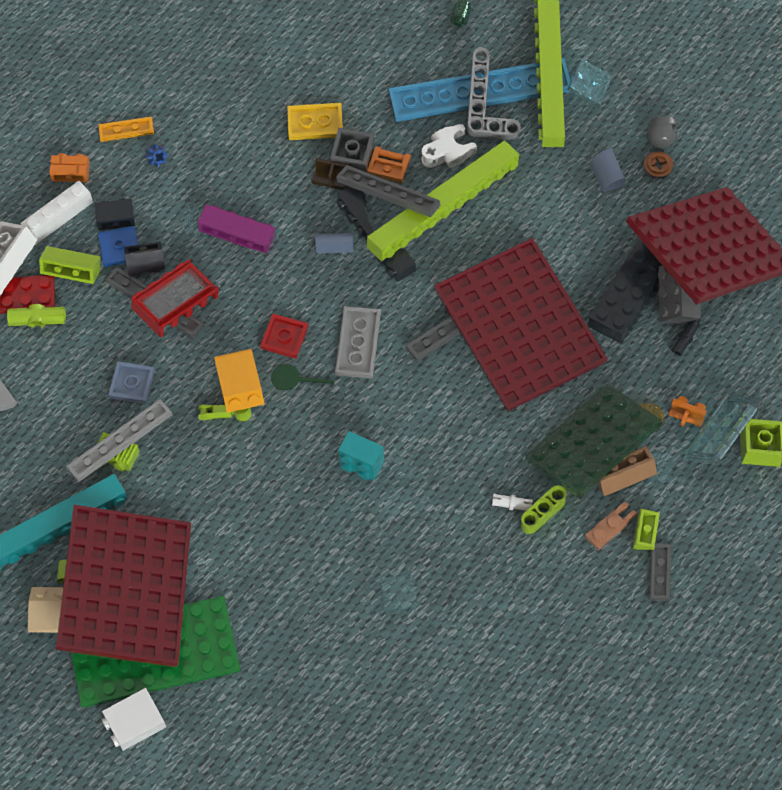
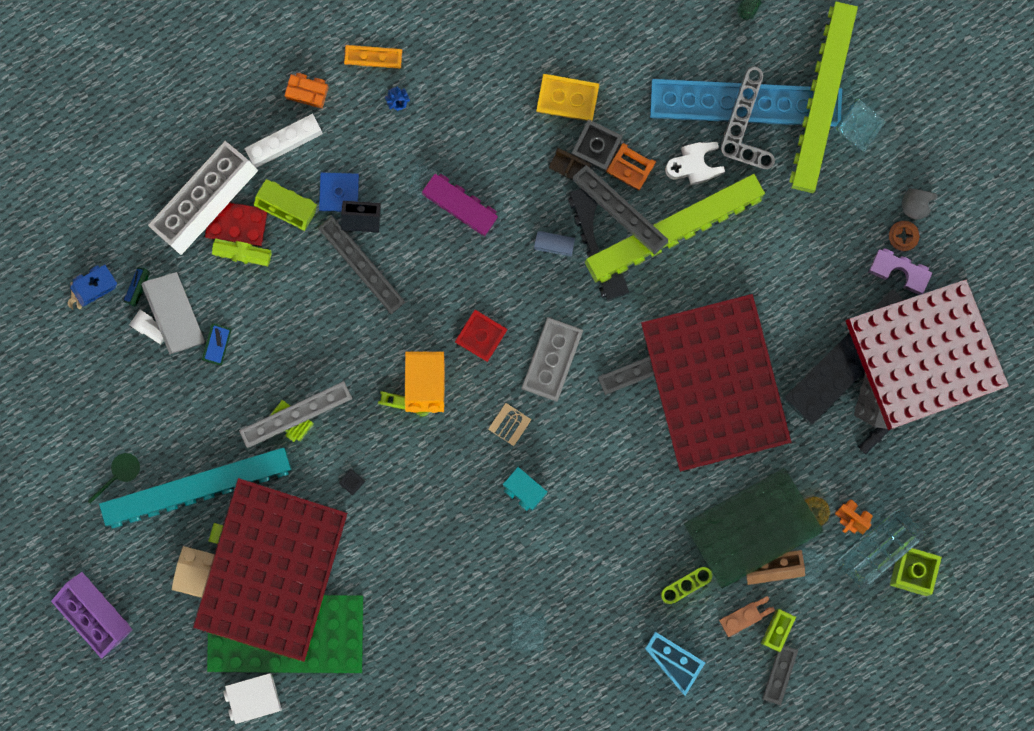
camera: 15 degrees right, 20 degrees up
(28, 402) = (216, 344): none -> slope
(114, 214) = (341, 156): black brick -> none
(131, 382) = (321, 349): sand blue plate -> none
(173, 296) = (381, 268): window -> none
(189, 494) = (352, 482): none -> black tile
(287, 376) = (473, 379): dark green piece -> none
(331, 408) = (509, 424): none -> piece
(511, 502) = (658, 569): white pin -> none
(552, 580) = (674, 661): none -> medium azure wedge
(607, 170) = (849, 231): sand blue brick -> none
(651, 187) = (916, 276): none -> lavender arch

